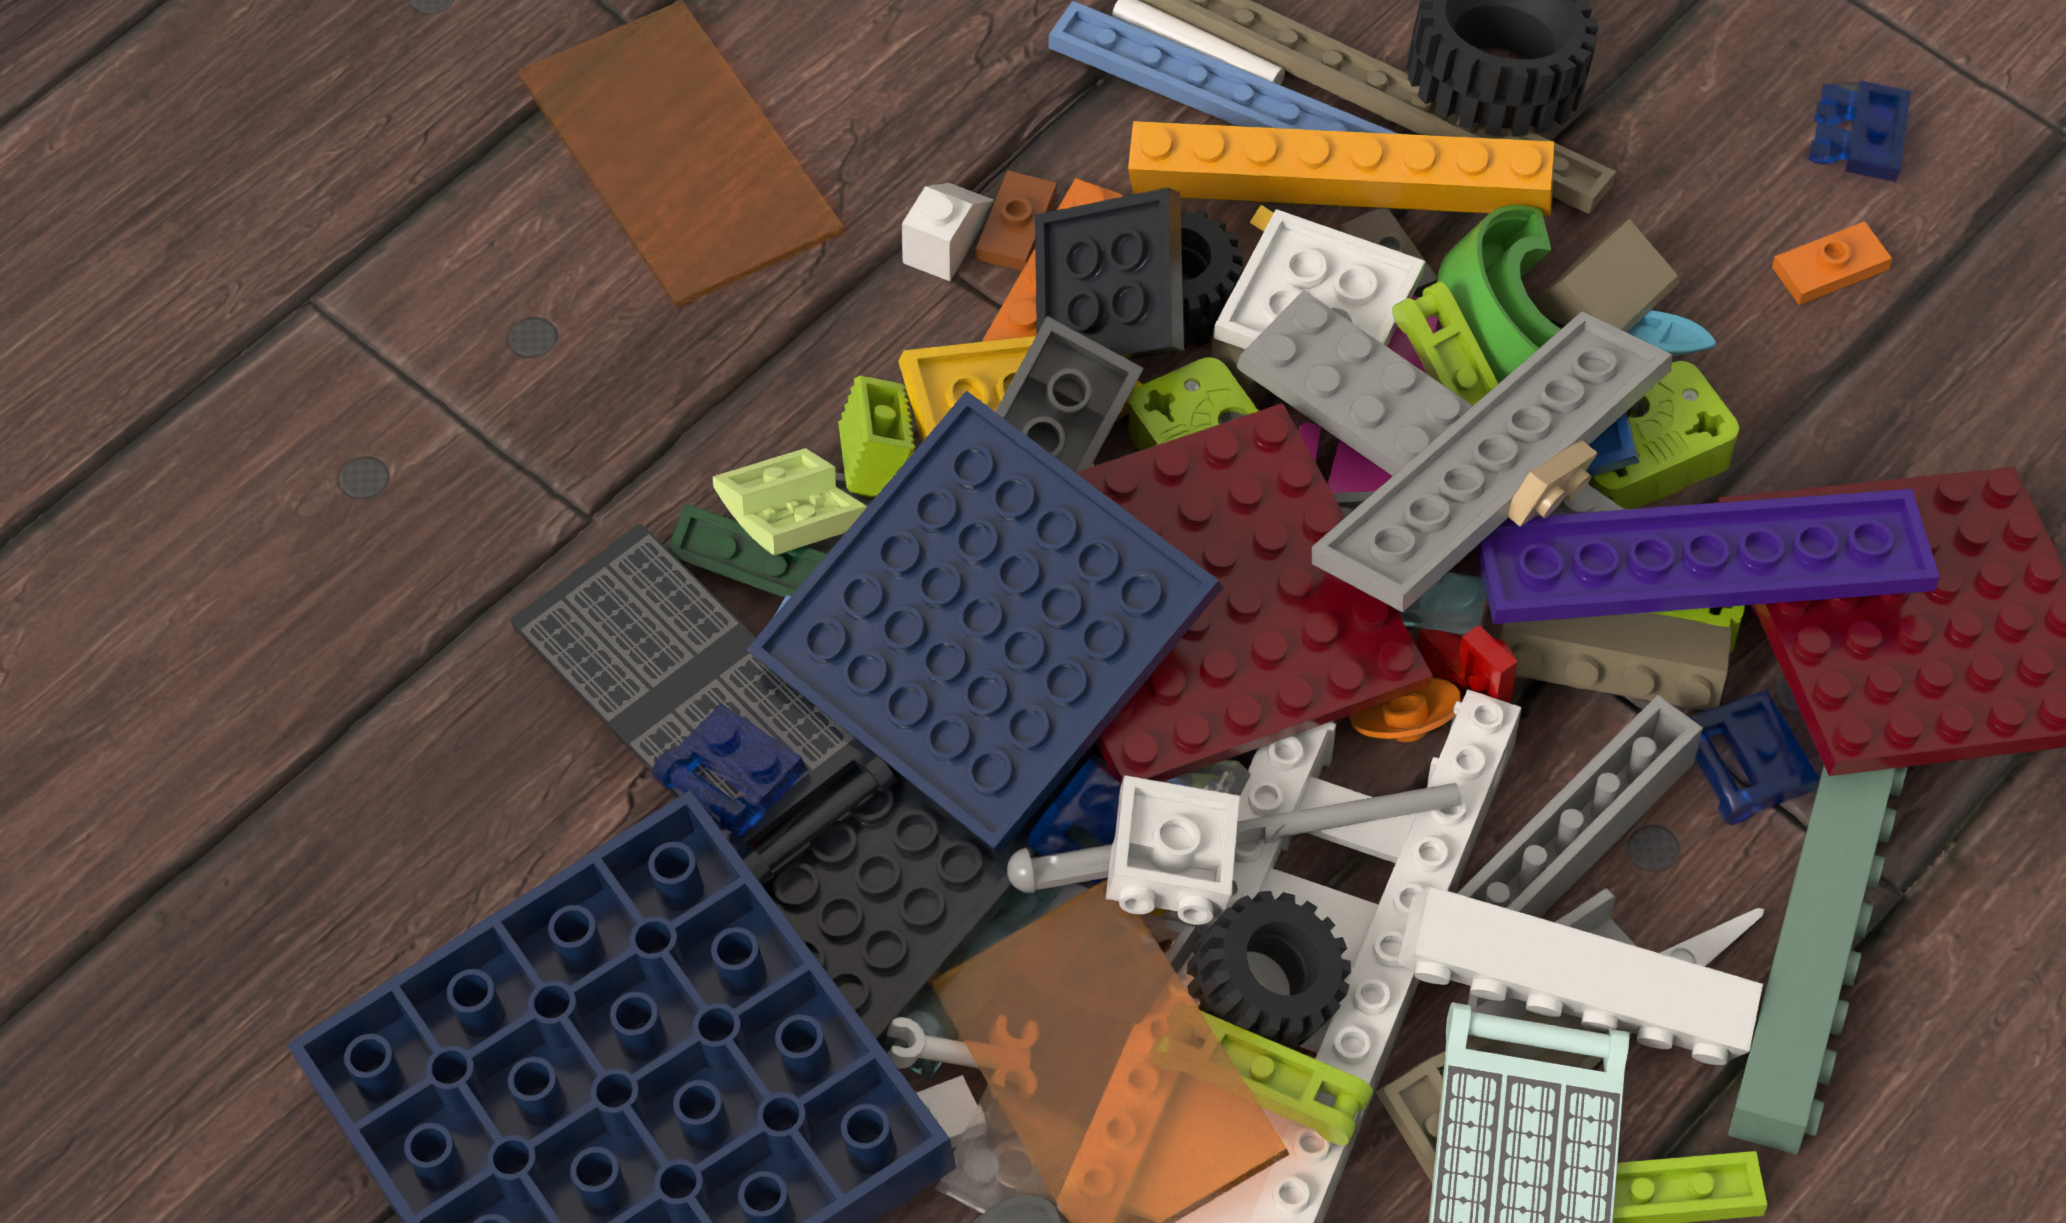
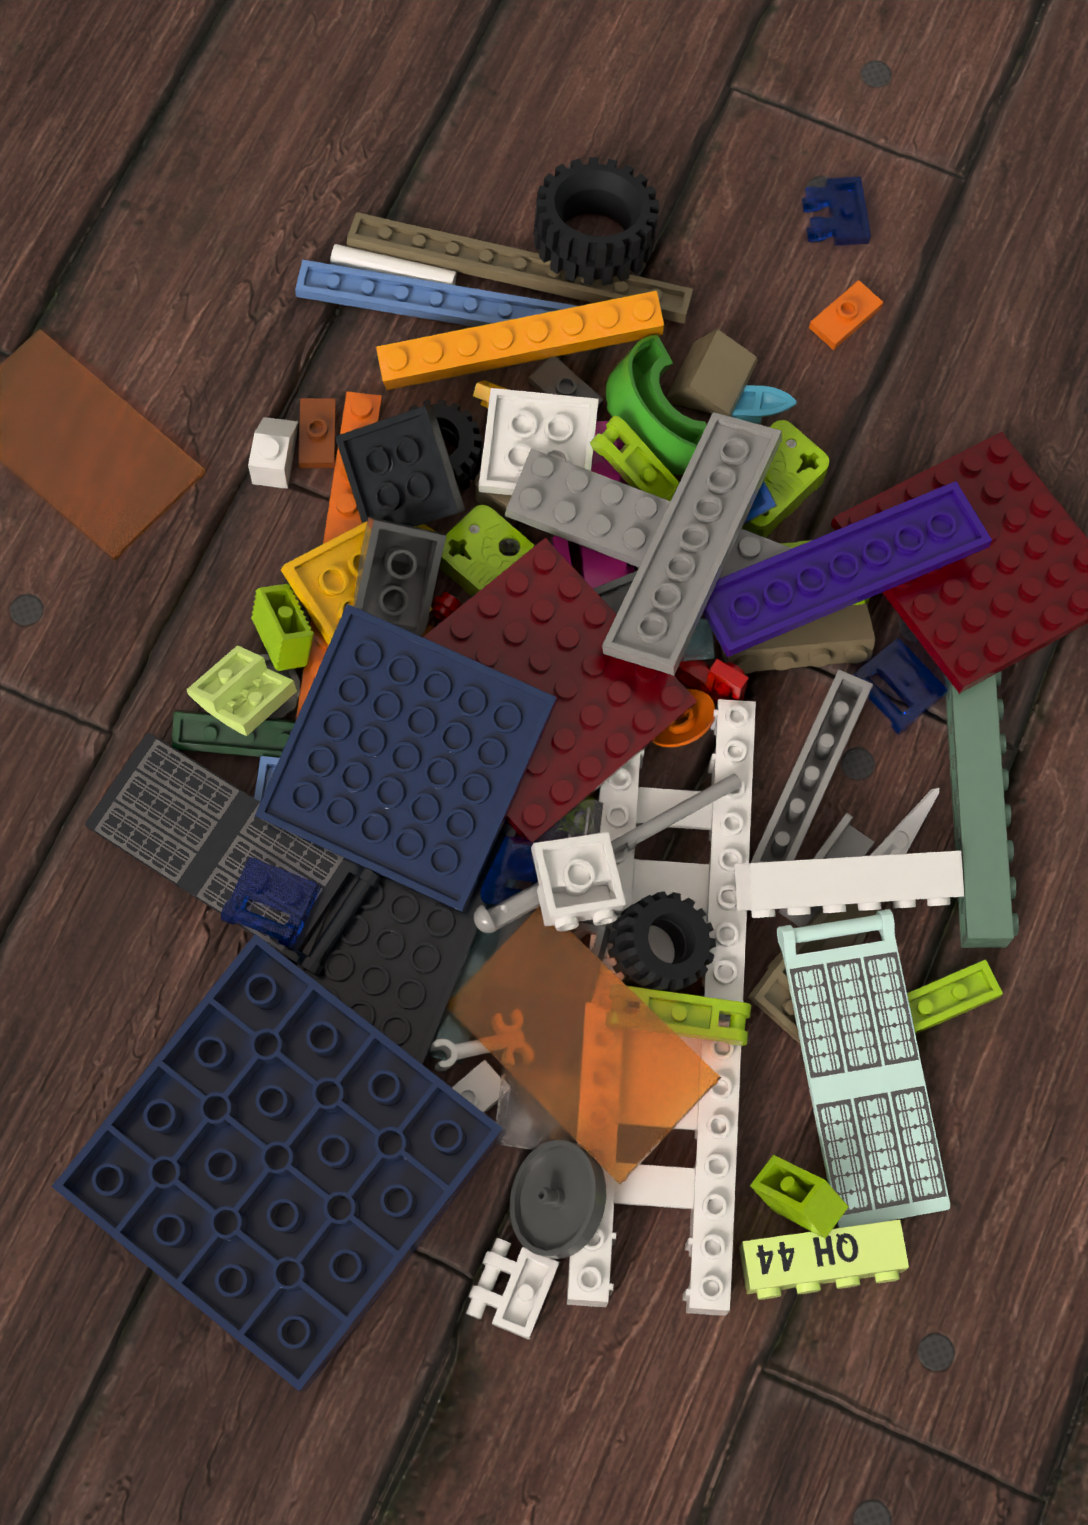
camera: 20 degrees left, 15 degrees up
(1552, 482) = (738, 551): tan plate -> none

